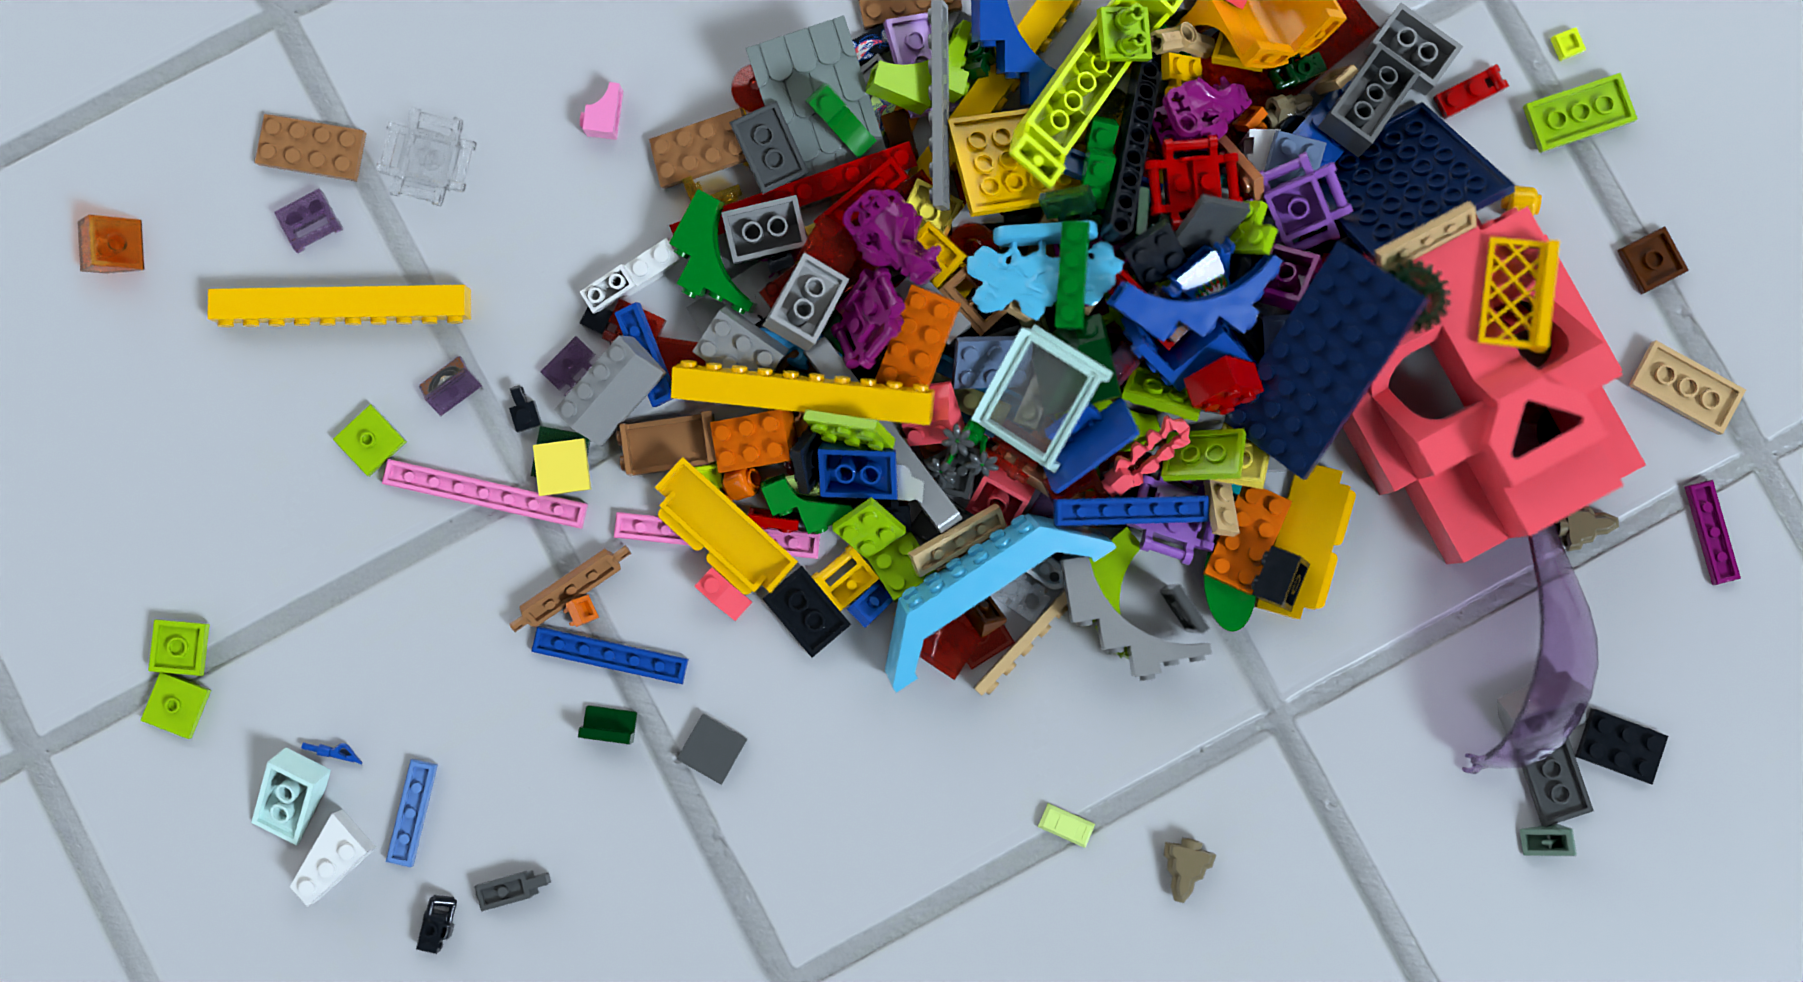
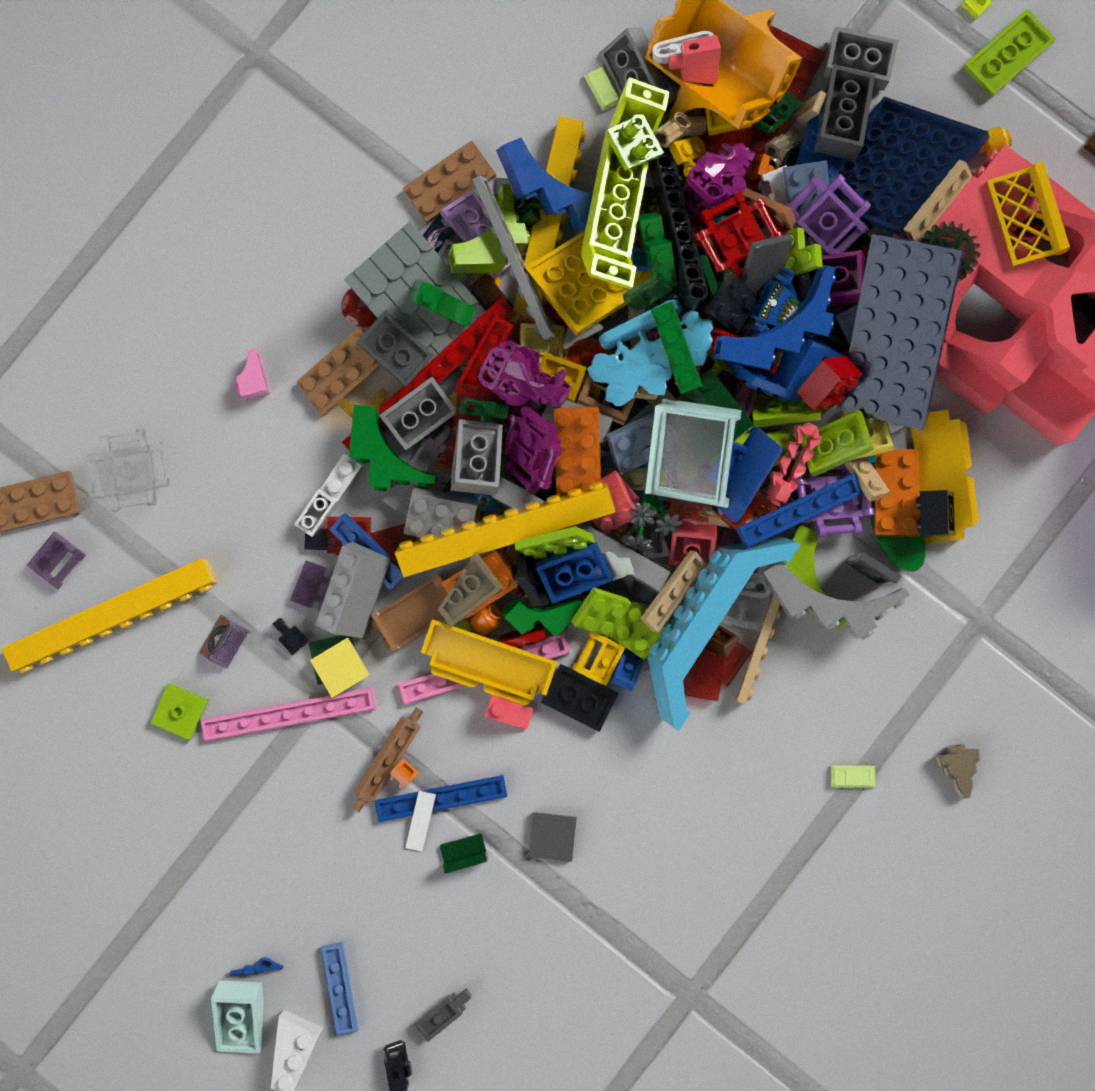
camera: 15 degrees left, 0 degrees up
(175, 705) = (117, 985): lime plate -> none
(178, 647) = (100, 938): lime plate -> none
(577, 670) = (420, 821): none -> white sticker
(735, 444) = (472, 589): none -> dark tan wing
(837, 254) = (484, 409): none -> dark green piece
(1470, 92) = (917, 73): red plate -> none

